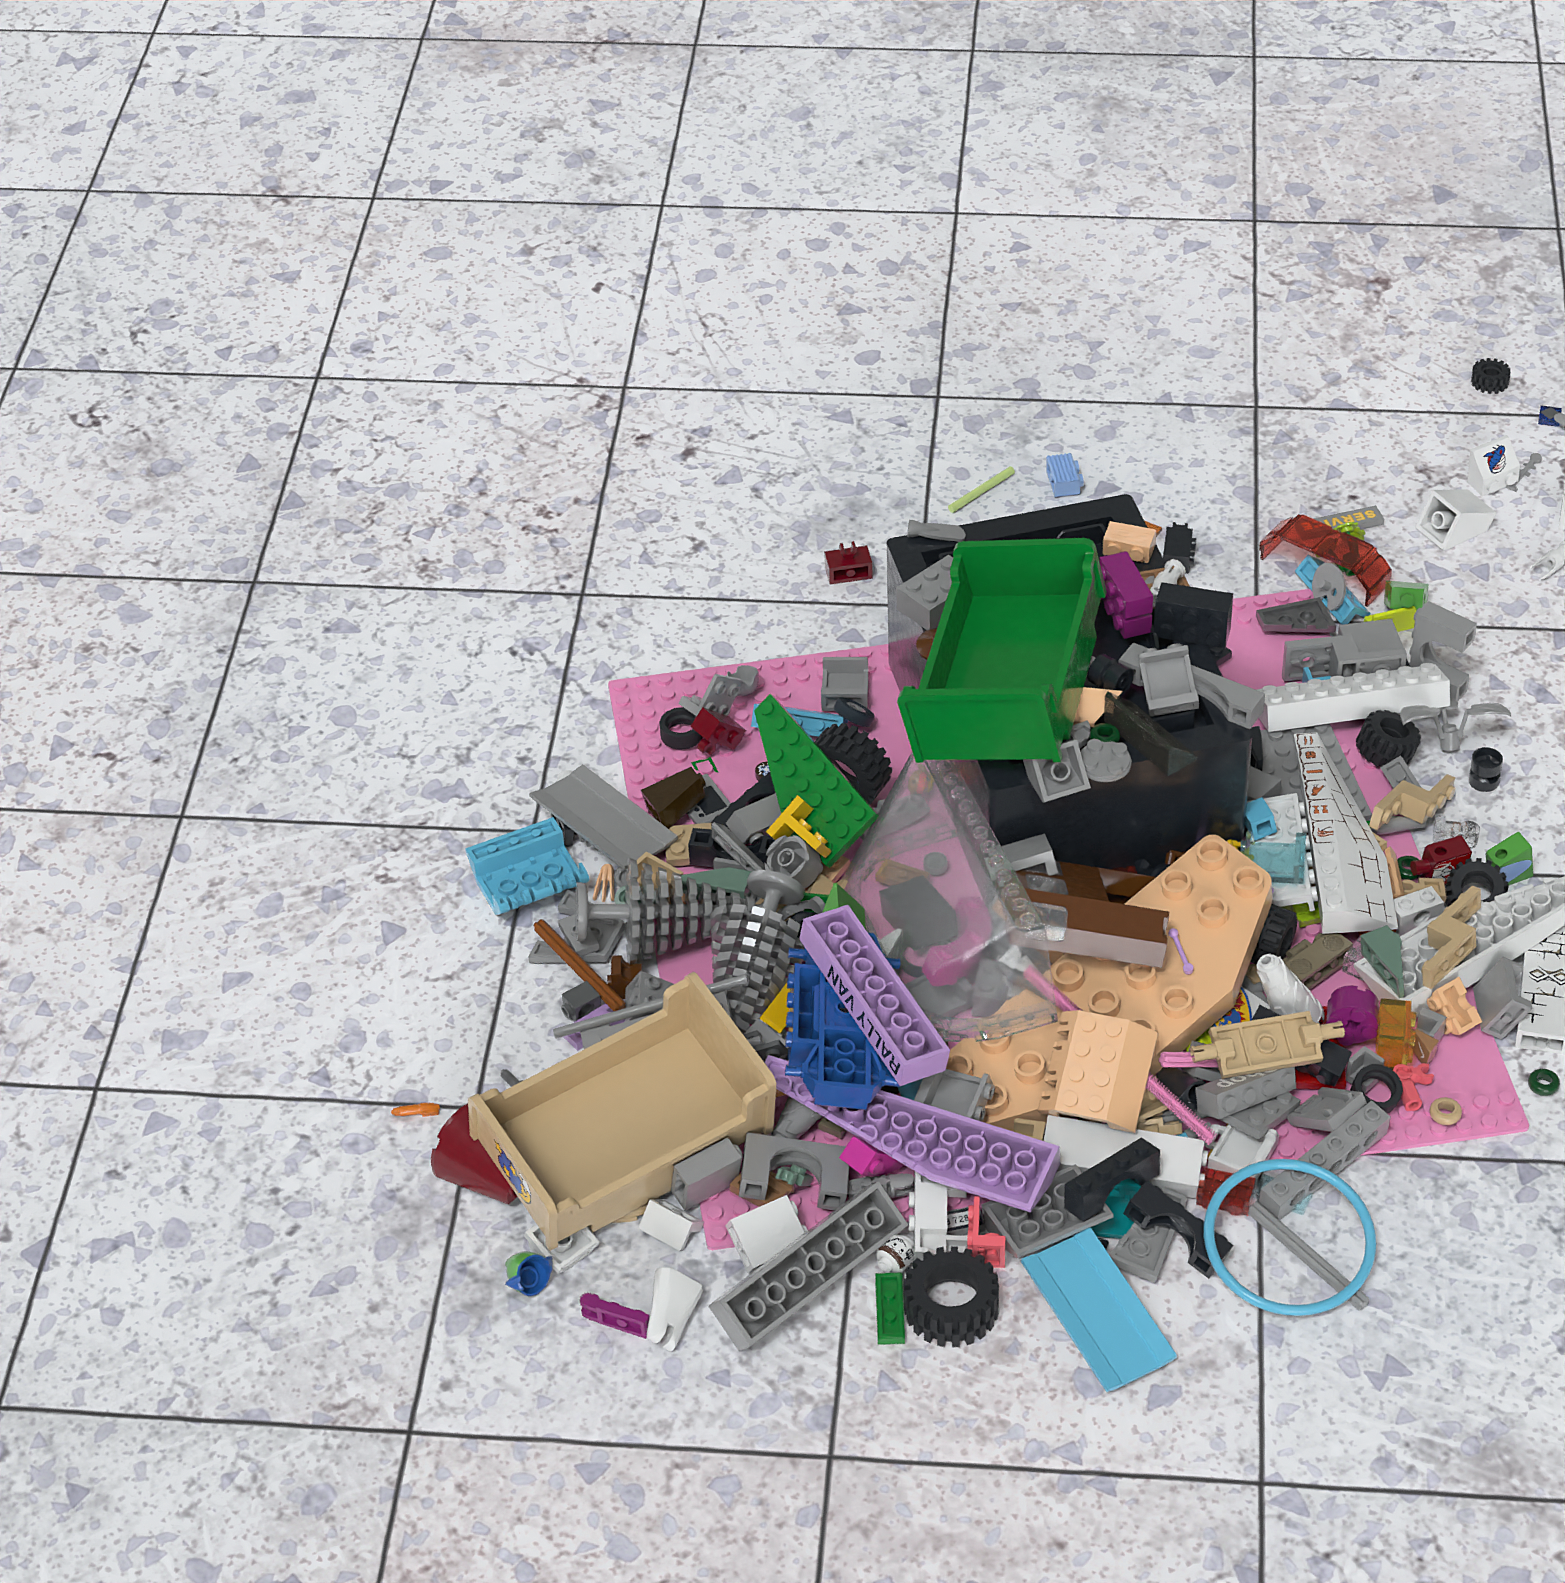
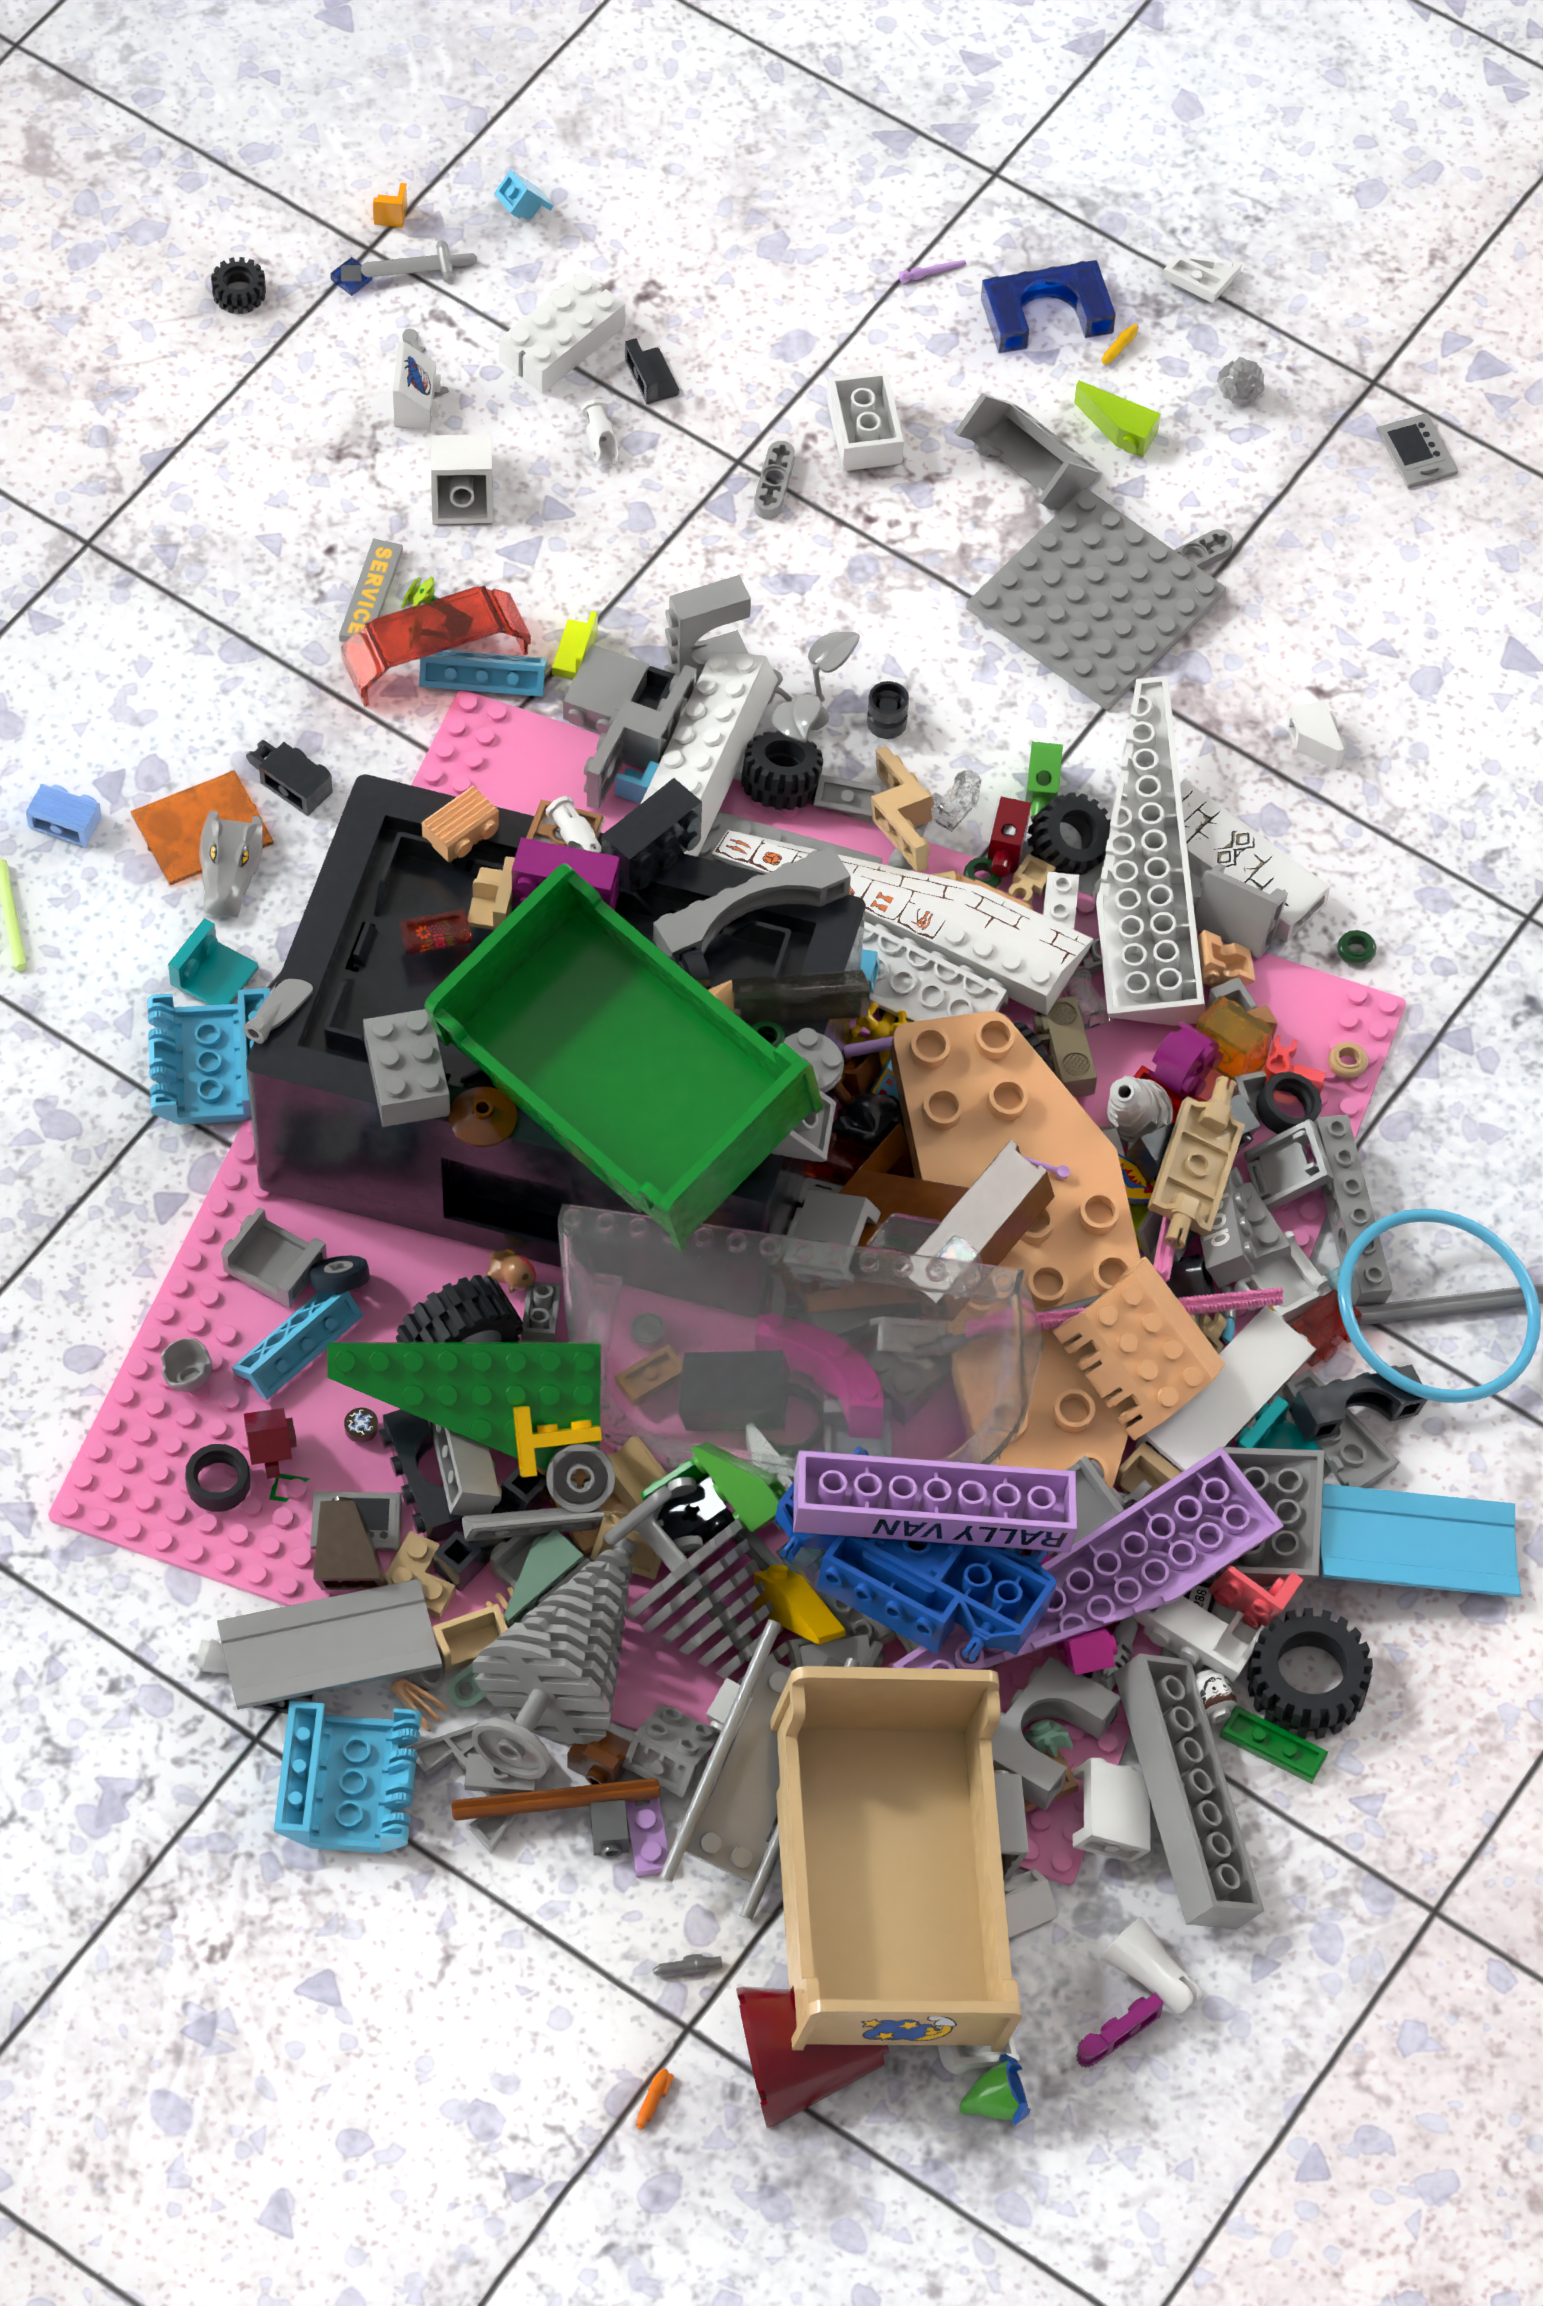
camera: 65 degrees left, 15 degrees up
(717, 697) = (215, 1432): light grey bracket -> none
(848, 564) = (45, 1135): dark red brick -> none
(1088, 1191) = (1286, 1423): black arch -> none
(1168, 680) = (745, 927): light grey panel -> none
(1281, 860) = (940, 987): clear light blue panel -> none
(1297, 617) = (513, 732): flat silver wing -> none
(1325, 581) = (478, 668): light grey piece -> none
(1383, 953) = (1136, 977): sand green slope -> none
(1405, 594) = (559, 607): bright green torso -> none
(1451, 937) = (1152, 901): tan bracket -> none

